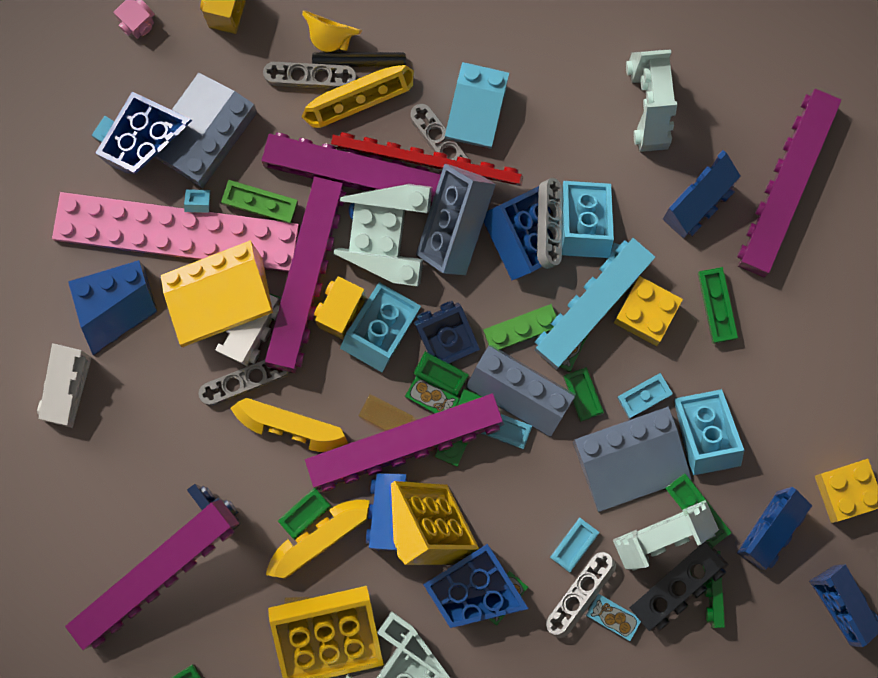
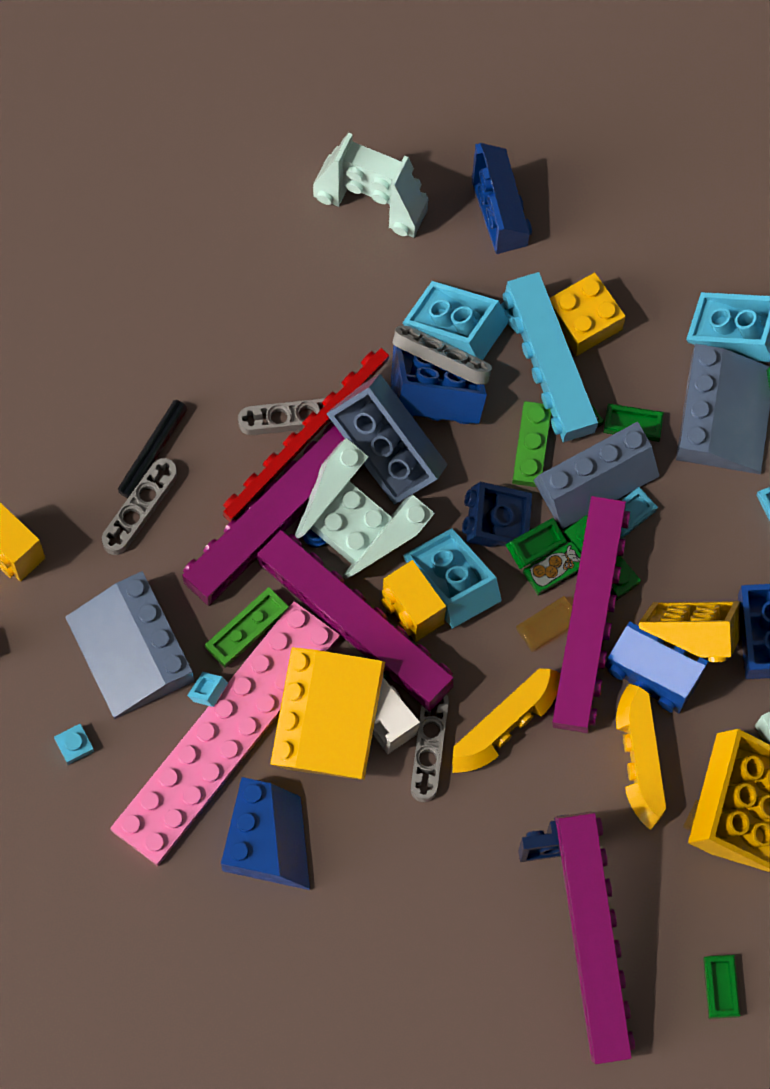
camera: 65 degrees left, 10 degrees down
(63, 385) = (329, 933): white wedge -> none
(139, 134) = (105, 702): blue wedge -> none
(304, 513) = (605, 759): green tile -> none
(327, 34) = (110, 461): yellow hat -> none
(358, 95) = (194, 468): yellow brick -> none
(477, 105) = (275, 358): medium azure slope -> none
(644, 395) = (668, 364): medium azure plate -> none
(717, 305) = (615, 249): green plate -> none
(789, 182) = (531, 119): magenta brick -> none

